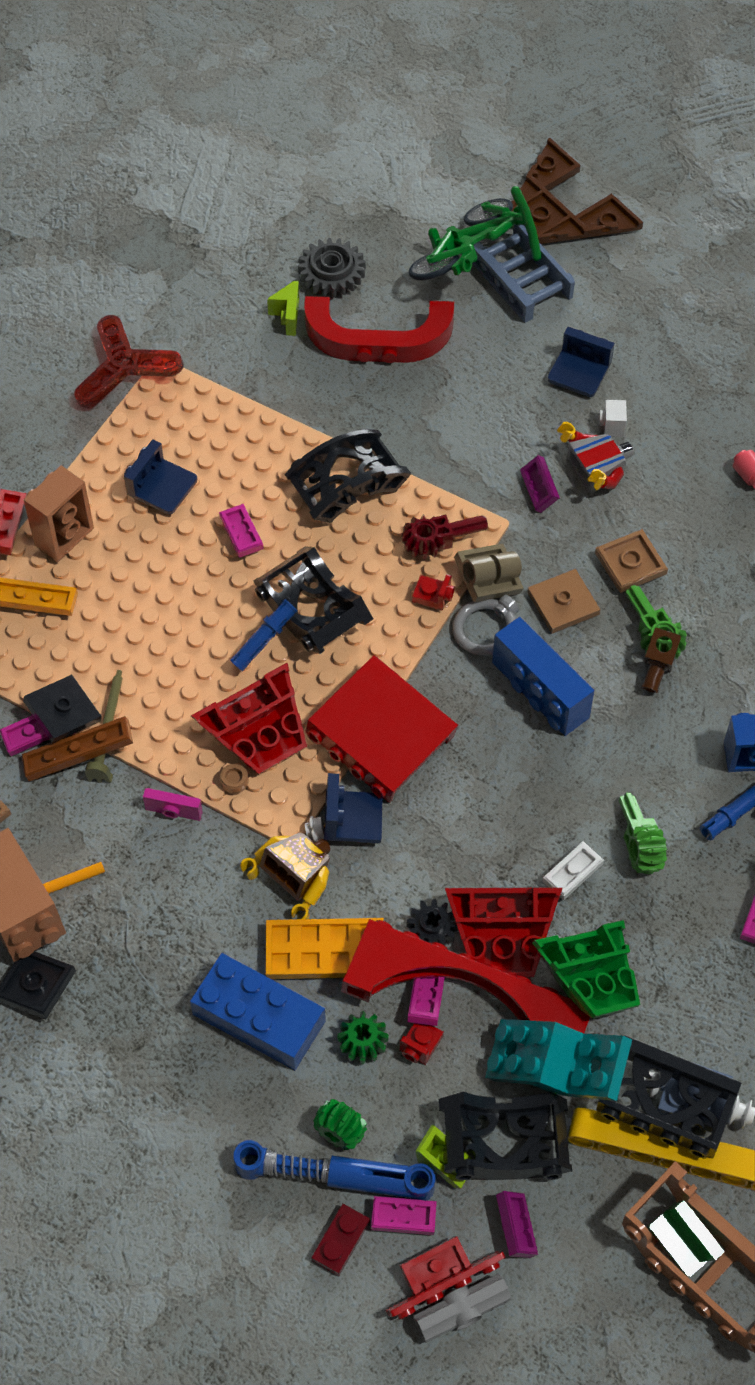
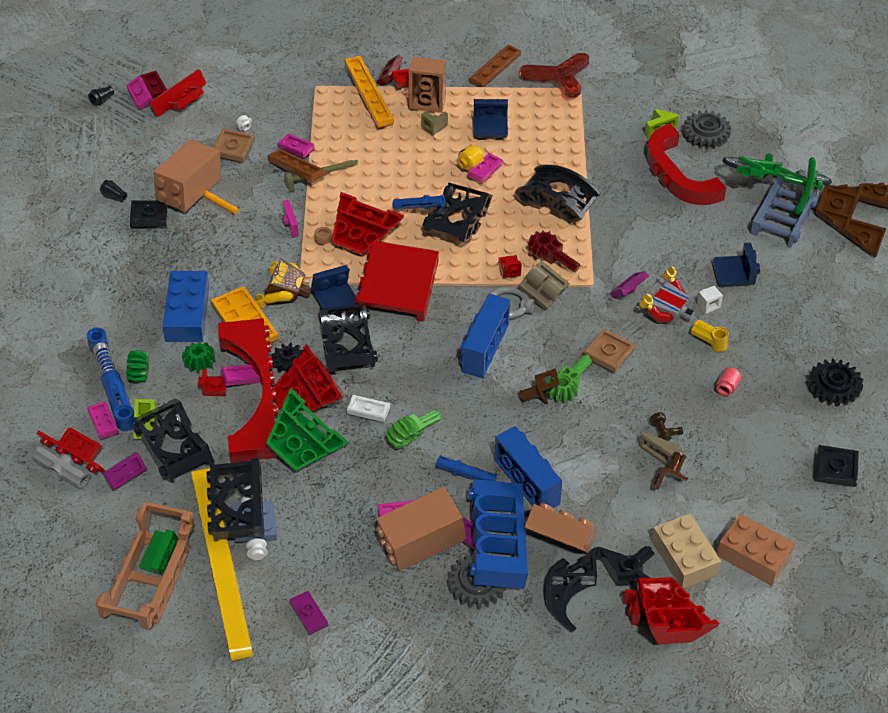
camera: 60 degrees right, 10 degrees down
(44, 426) = (495, 66): none -> dark orange tile
(62, 708) = (314, 147): black plate -> none
(113, 546) = (434, 123): none -> olive panel
(216, 536) = (470, 157): none -> yellow head
(340, 1239) = (74, 400): dark red plate -> none
(405, 845) = (355, 356): none -> black fence
(558, 1059) = (224, 432): teal bracket -> none
(563, 601) = (555, 331): medium nougat plate -> none
(670, 446) = (714, 335): none -> yellow piece

